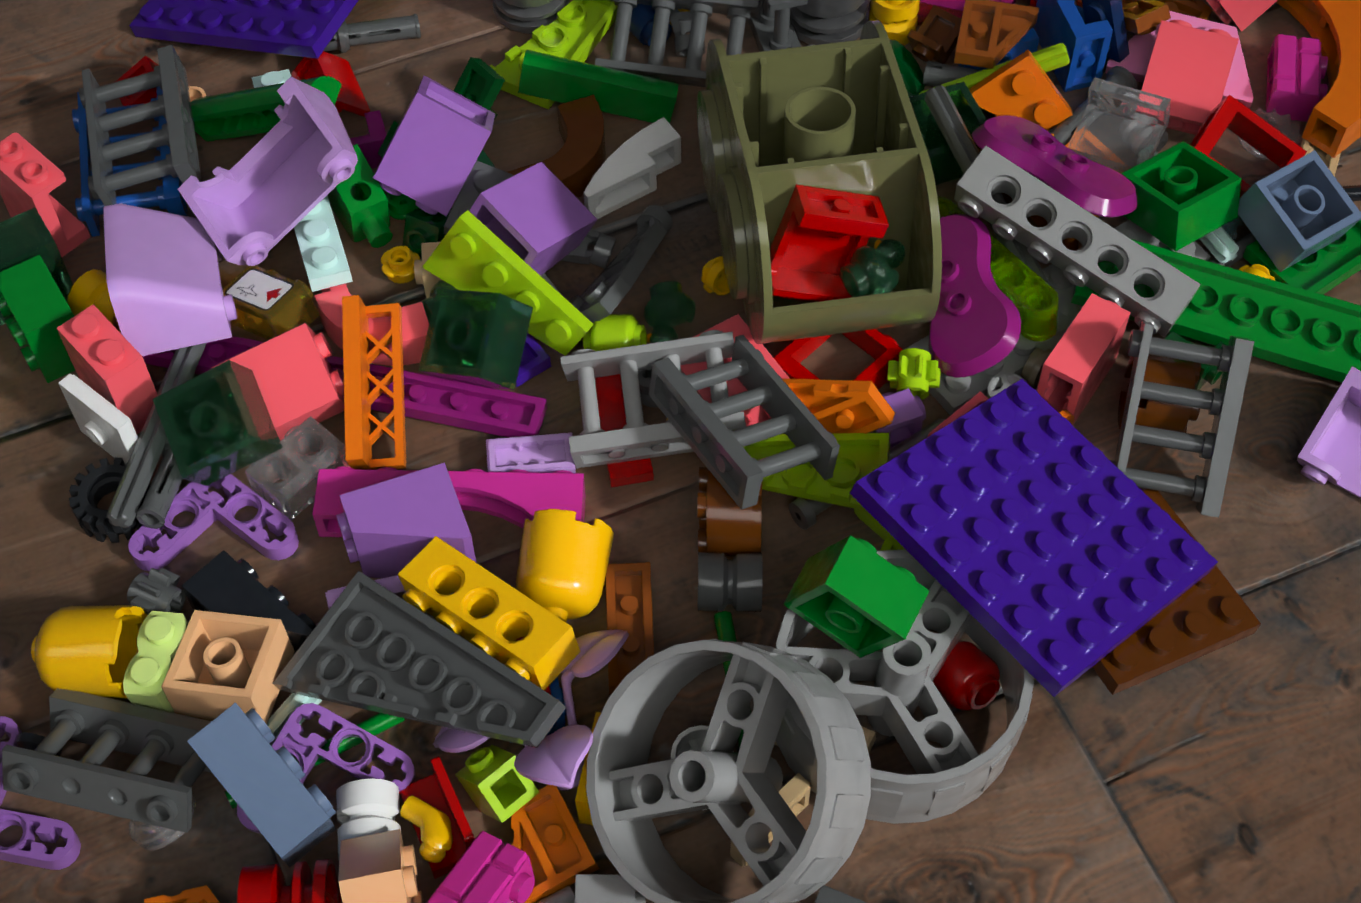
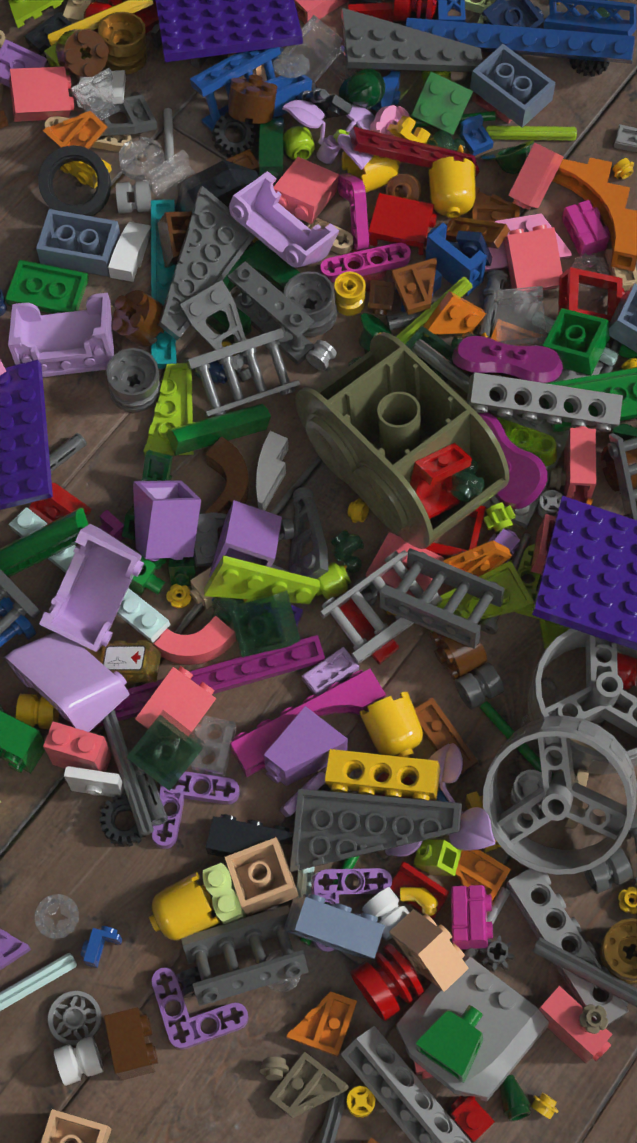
camera: 30 degrees left, 10 degrees up
(156, 591) = (192, 859): dark grey gear -> none
(357, 384) = (217, 684): orange fence -> none
(857, 596) = (571, 669): green brick -> none

